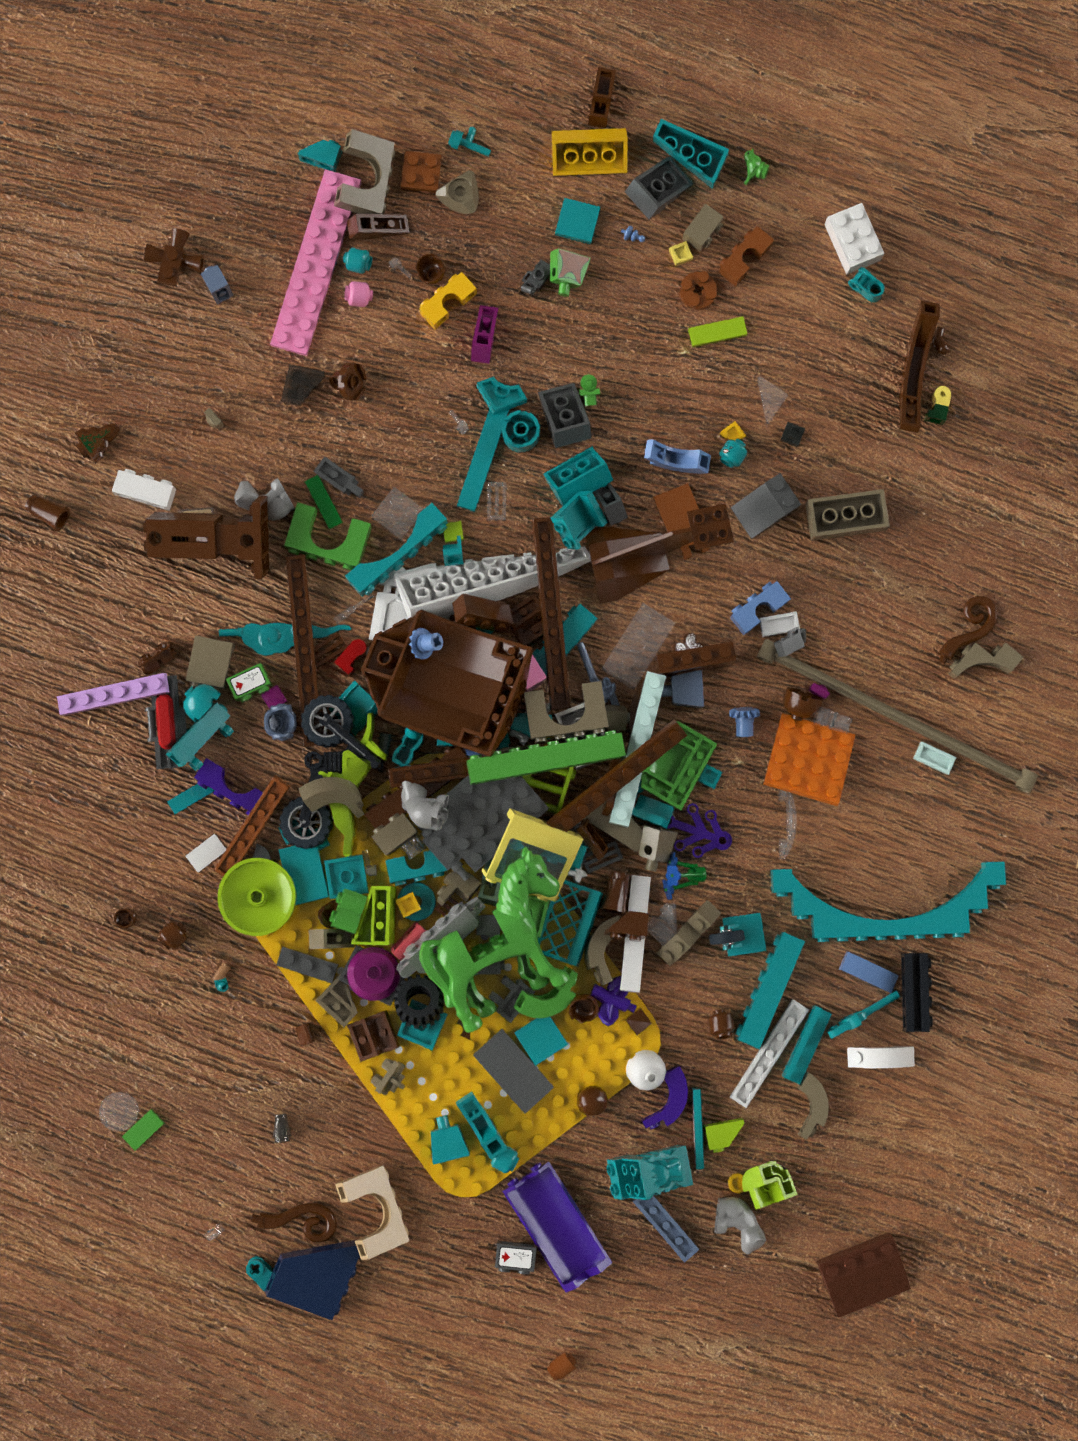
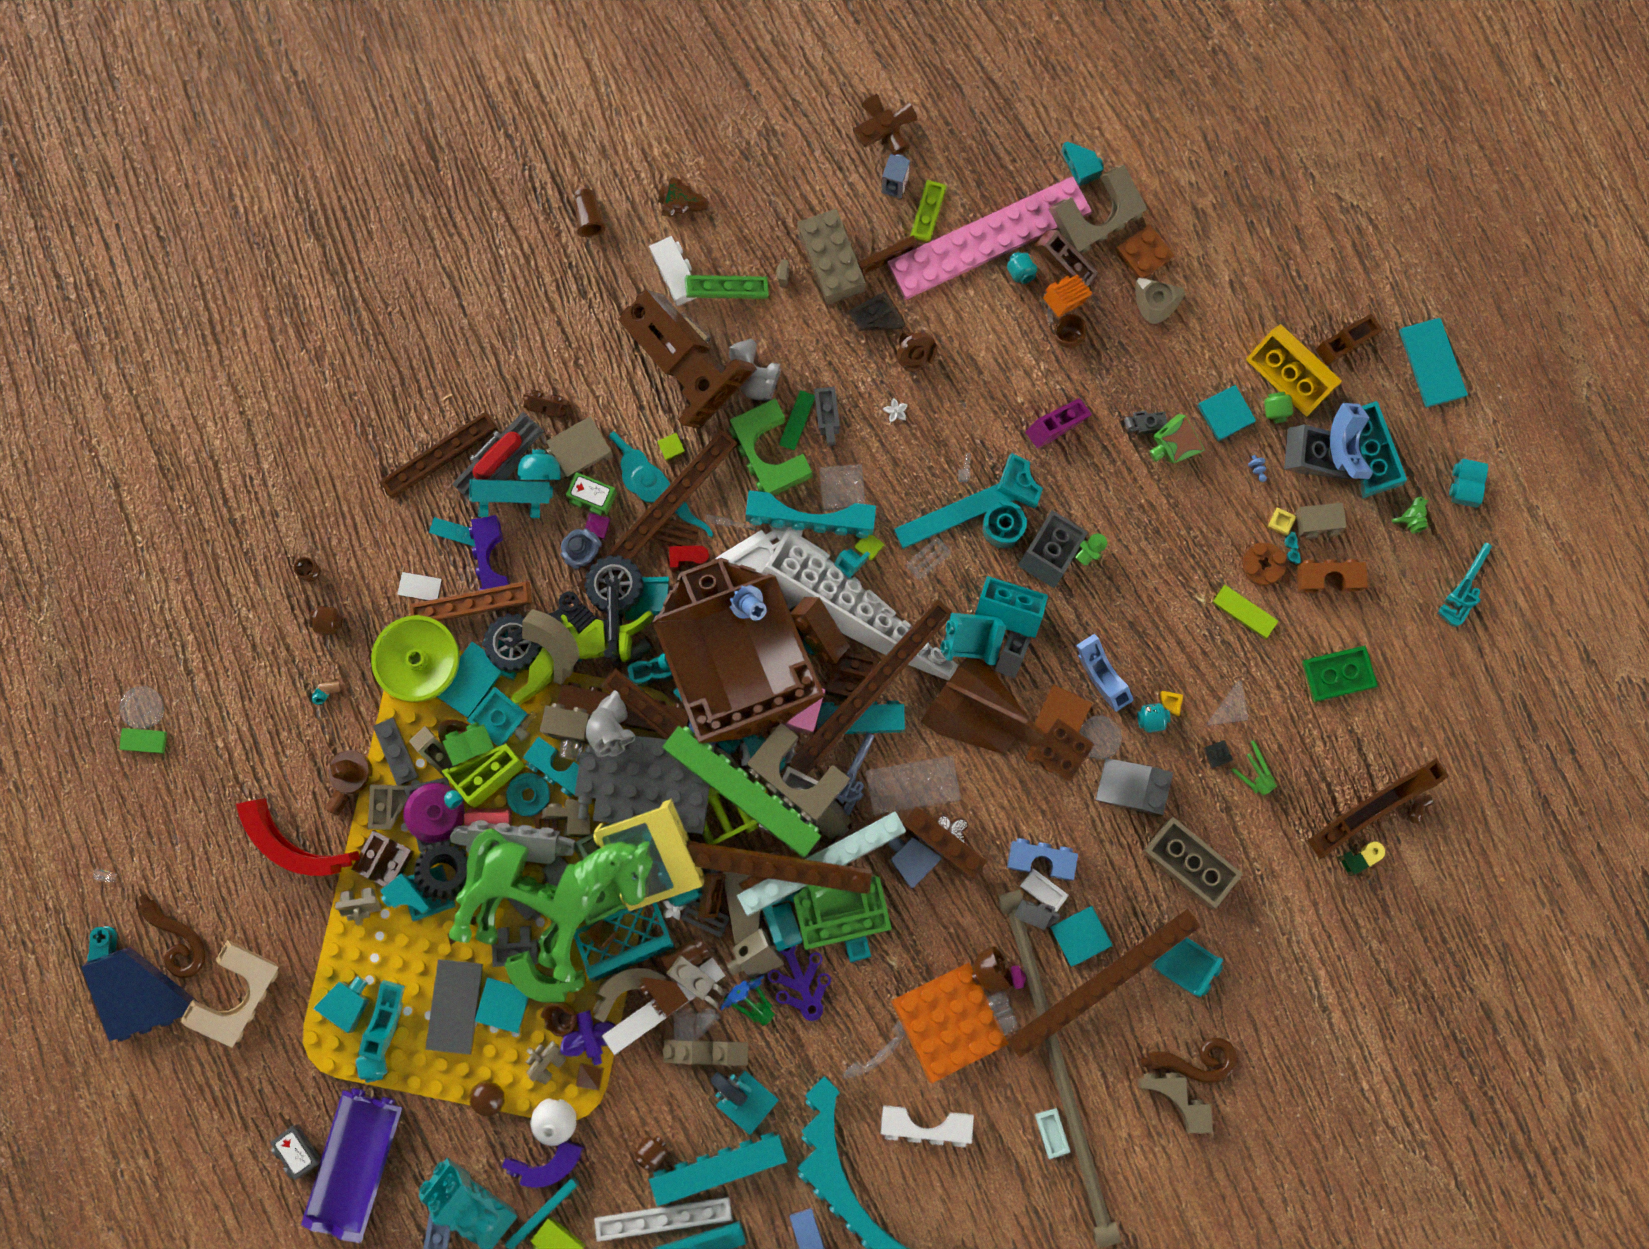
camera: 55 degrees right, 5 degrees down
(113, 694) = (483, 395): lavender plate -> none
(125, 761) = (438, 455): none -> reddish brown tile
(188, 465) = (726, 287): none -> bright green tile
(232, 377) = (831, 256): none -> dark tan brick
(259, 285) = (928, 211): none -> lime tile
(261, 852) = (458, 631): dark grey tile -> none
(264, 601) = (671, 447): none -> lime tile
(265, 341) = (885, 255): none -> reddish brown tile
(281, 1129) = (237, 855): clear smoke cone -> none
(293, 1007) = (350, 772): none -> reddish brown tile
(304, 1099) = (273, 844): none -> red arch
(358, 294) = (994, 293): bright pink head -> none
(377, 432) = (896, 411): none -> white plant
(377, 952) = (453, 799): none -> teal hinge
(404, 248) = (1067, 295): none -> orange brick
(408, 904) = (517, 789): yellow plate -> none
(409, 1039) = (403, 892): none -> teal arch
(456, 140) = (1198, 256): teal piece -> none
(457, 288) = (1076, 367): yellow arch -> none
(553, 932) = (601, 934): none -> reddish brown slope
(599, 1042) = (538, 1069): none -> dark tan hips
(605, 184) = (1278, 407): none -> bright green head
(637, 898) = (695, 980): none -> dark tan hinge
(666, 59) = (1433, 362): none -> teal tile
(667, 164) = (1345, 440): none -> medium blue arch
(699, 260) = (1291, 542): none -> teal piece
(713, 494) = (1104, 735): none -> clear tile
(744, 720) = (933, 934): medium blue gear -> none
(765, 112) = (1469, 483): none -> teal brick
(811, 310) = (1339, 673): none -> green tile
(829, 626) = (1081, 936): none -> teal slope
(832, 185) = (1463, 595): none -> teal piece
(836, 422) = (1265, 781): none -> bright green plant
(854, 238) = (1435, 654): white brick -> none
(865, 285) = (1406, 697): teal piece -> none
(872, 639) = (1103, 983): none -> reddish brown plate
(877, 816) = (956, 1127): none -> white arch
(906, 576) = (1189, 967): none -> teal panel

